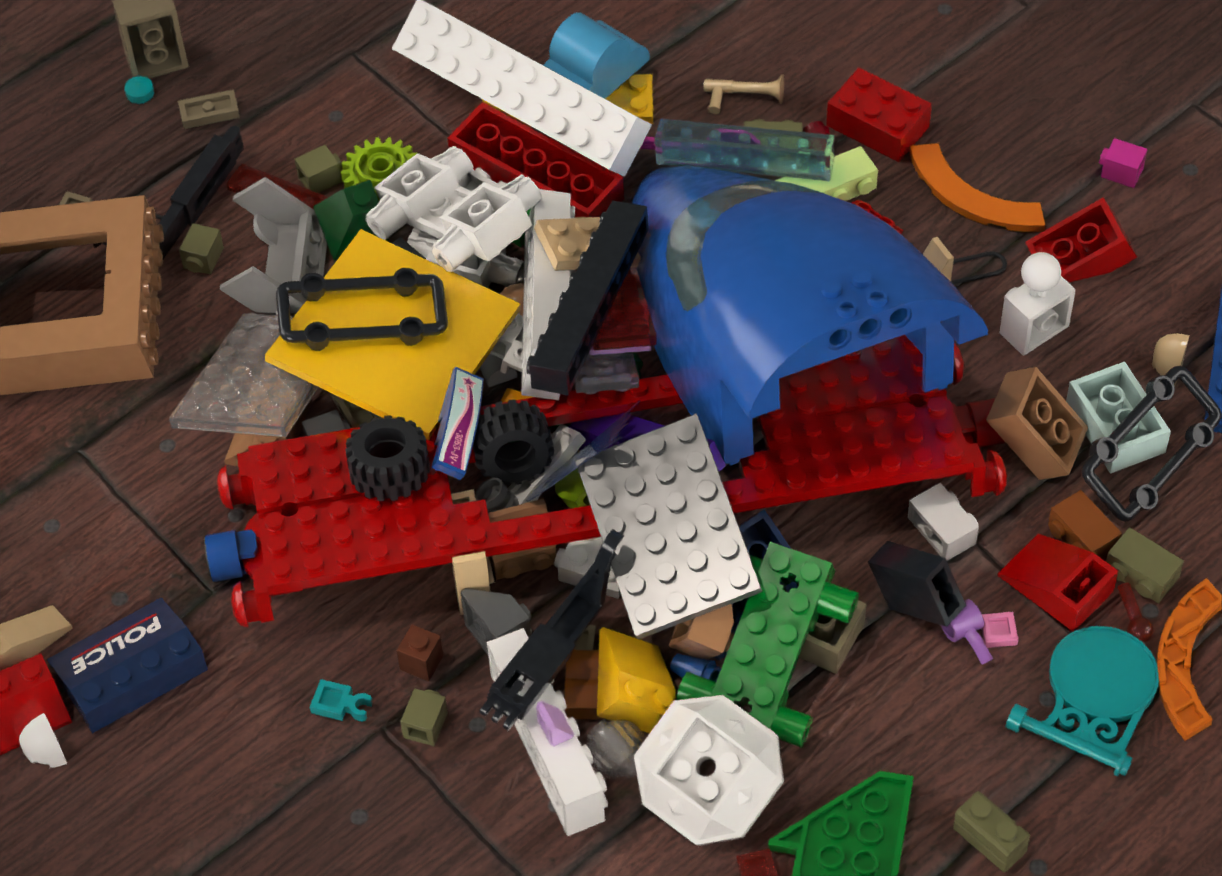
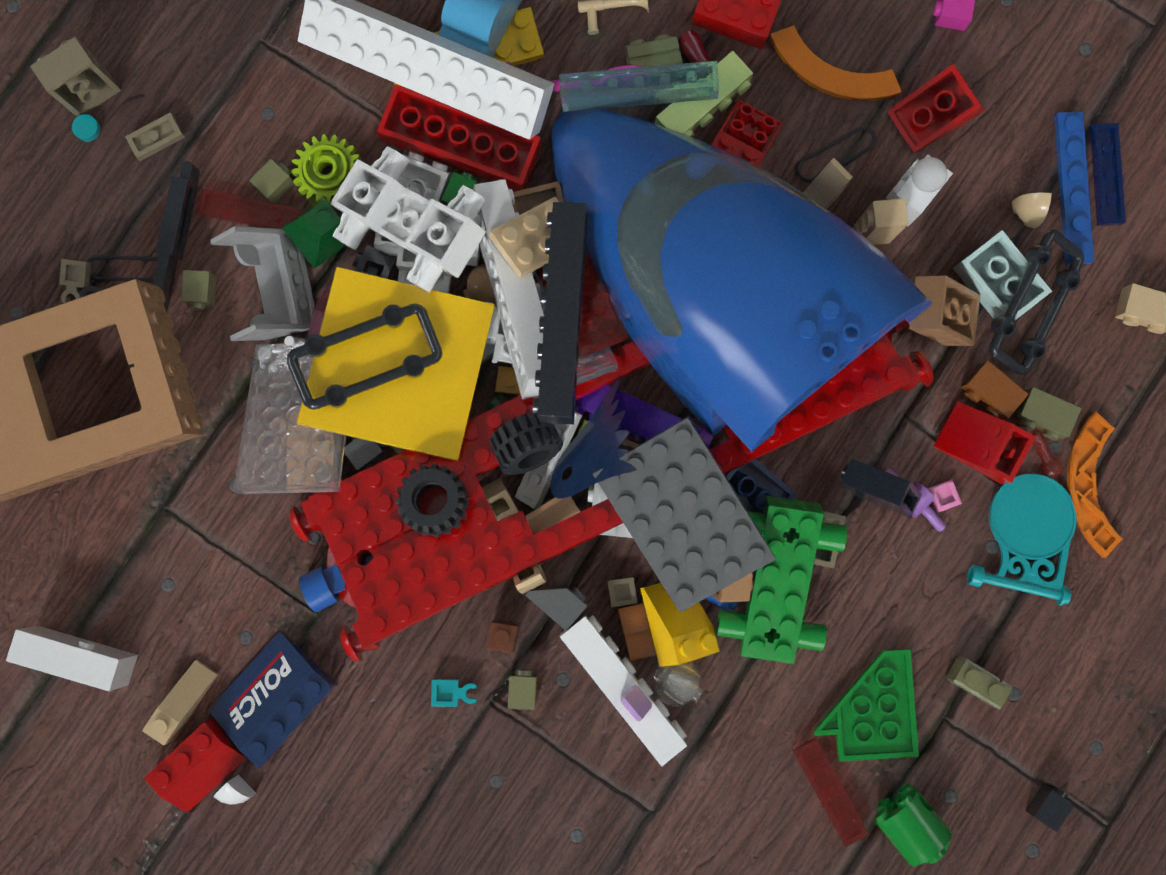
camera: 15 degrees left, 30 degrees up
(458, 423) = (480, 445): slope -> none
(496, 495) = (525, 488): dark grey wheel -> none
(552, 643) = (612, 637): black hinge -> none
(737, 791) = (763, 671): white piece -> none
(943, 521) = (887, 416): white brick -> none
(991, 307) = (882, 221): none -> tan brick

